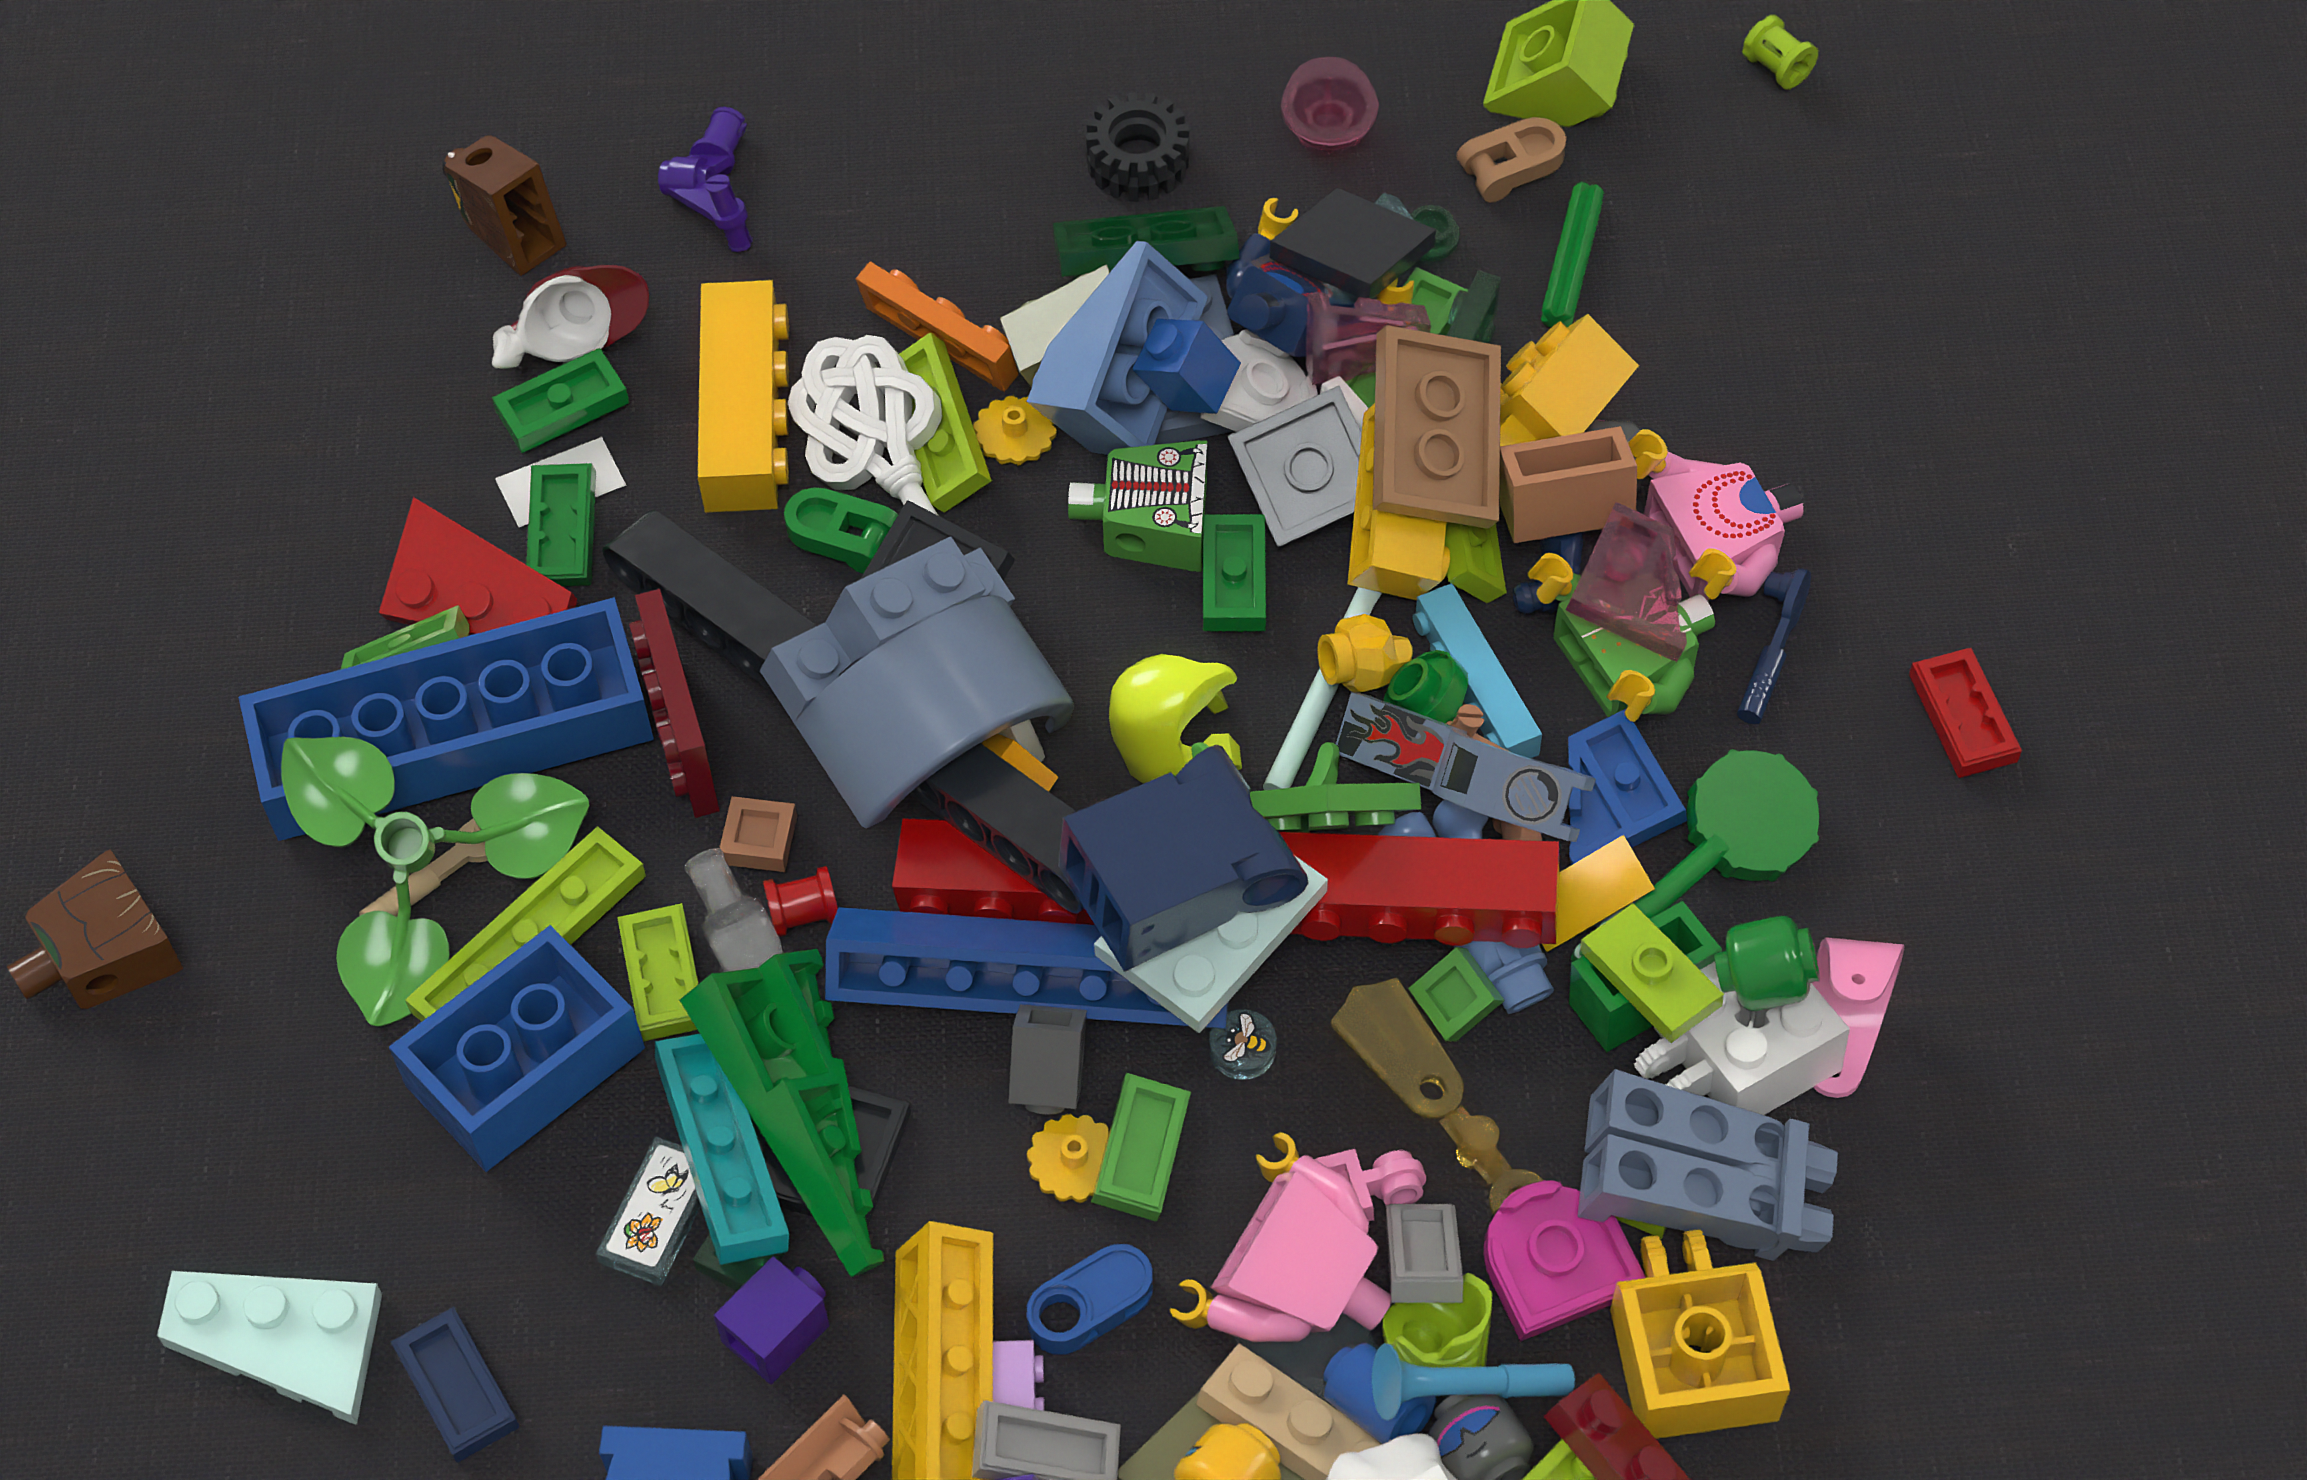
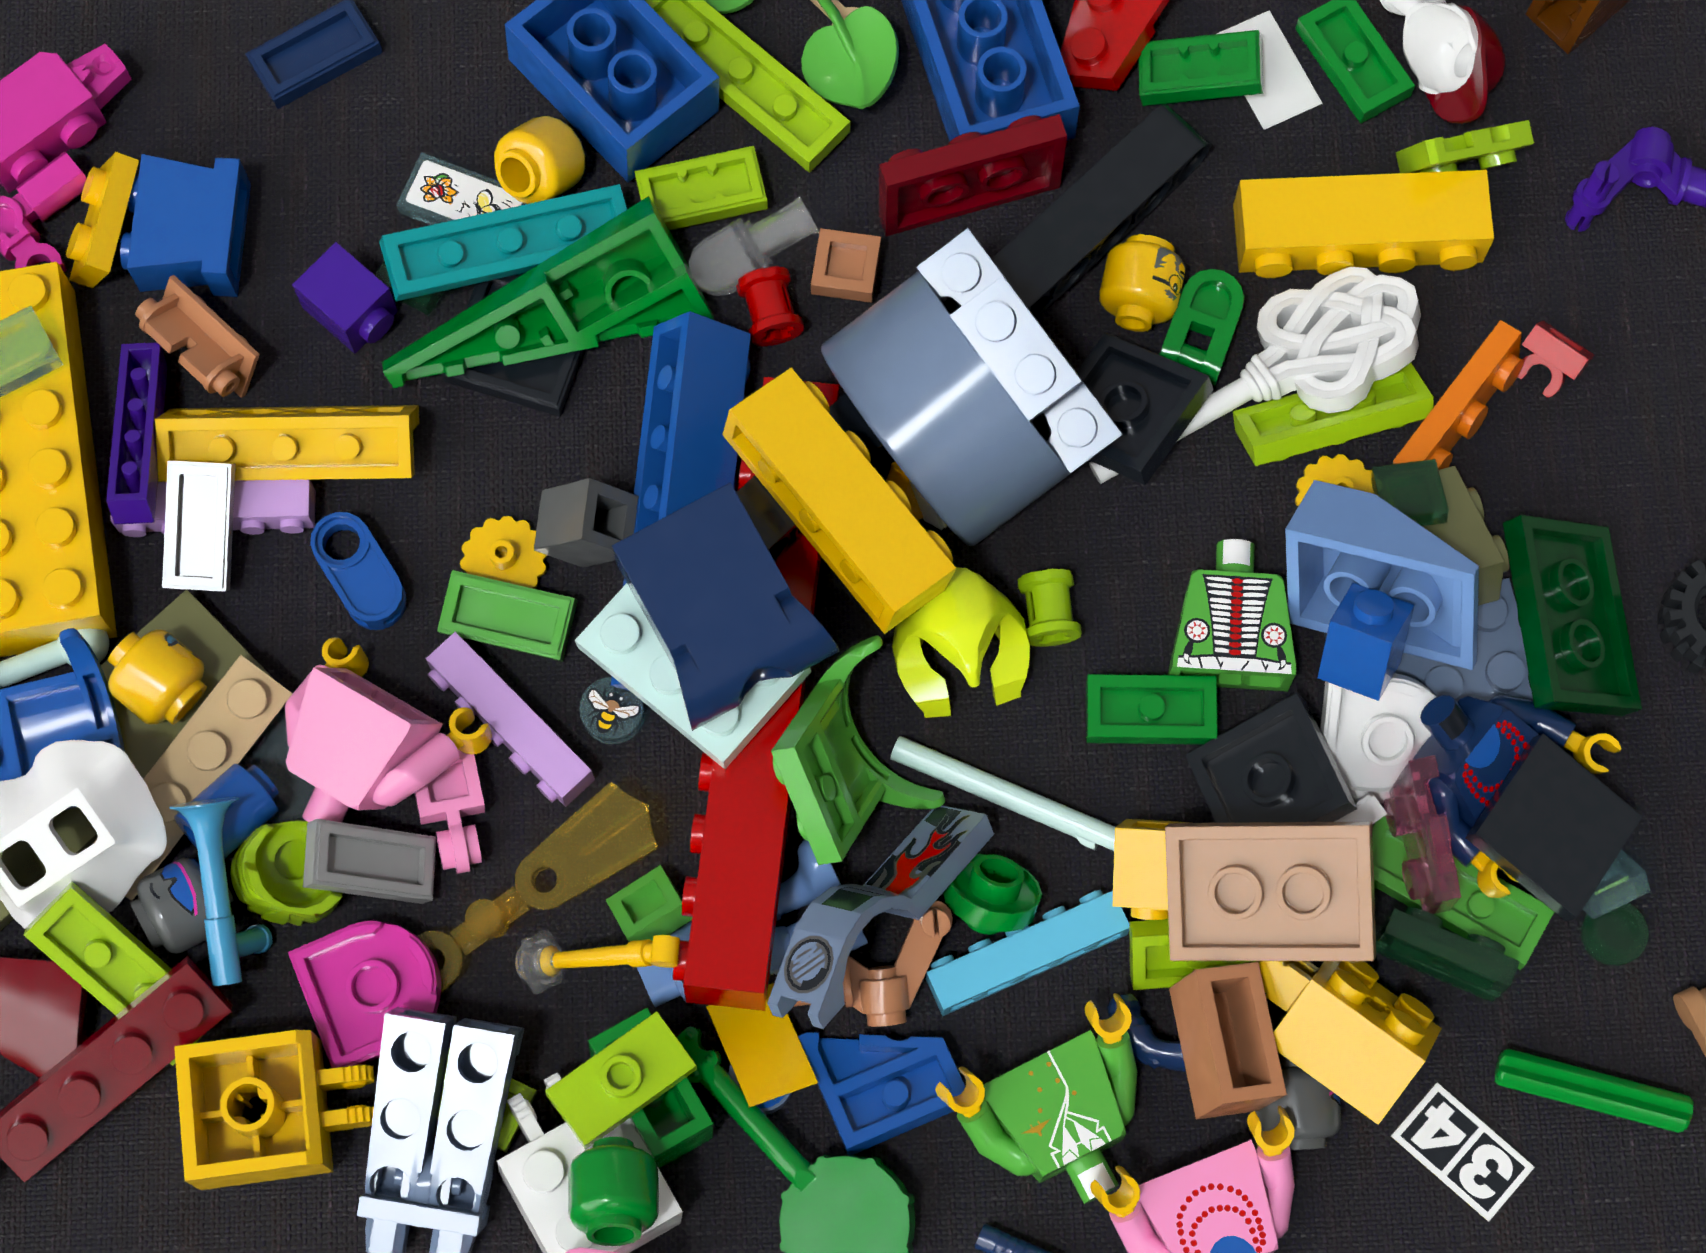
camera: 90 degrees right, 15 degrees up
(621, 1121) = (539, 160): none -> yellow head
(674, 311) = (1489, 145): none -> lime wing
(796, 569) = (1142, 282): none -> yellow head
(886, 249) = (1557, 353): none -> tile
(1028, 337) = (1413, 490): none -> clear green tile
(1059, 762) = (839, 499): none -> yellow brick
(1126, 649) = (1049, 607): none -> lime bush
(1230, 1160) = (510, 720): none -> lavender piece
(1362, 653) = (1034, 831): yellow rock -> none
(1515, 1091) = (542, 960): none -> piece
(1633, 583) = (1103, 1103): clear pink wing -> none
(1650, 344) = (1462, 1151): none -> white sticker

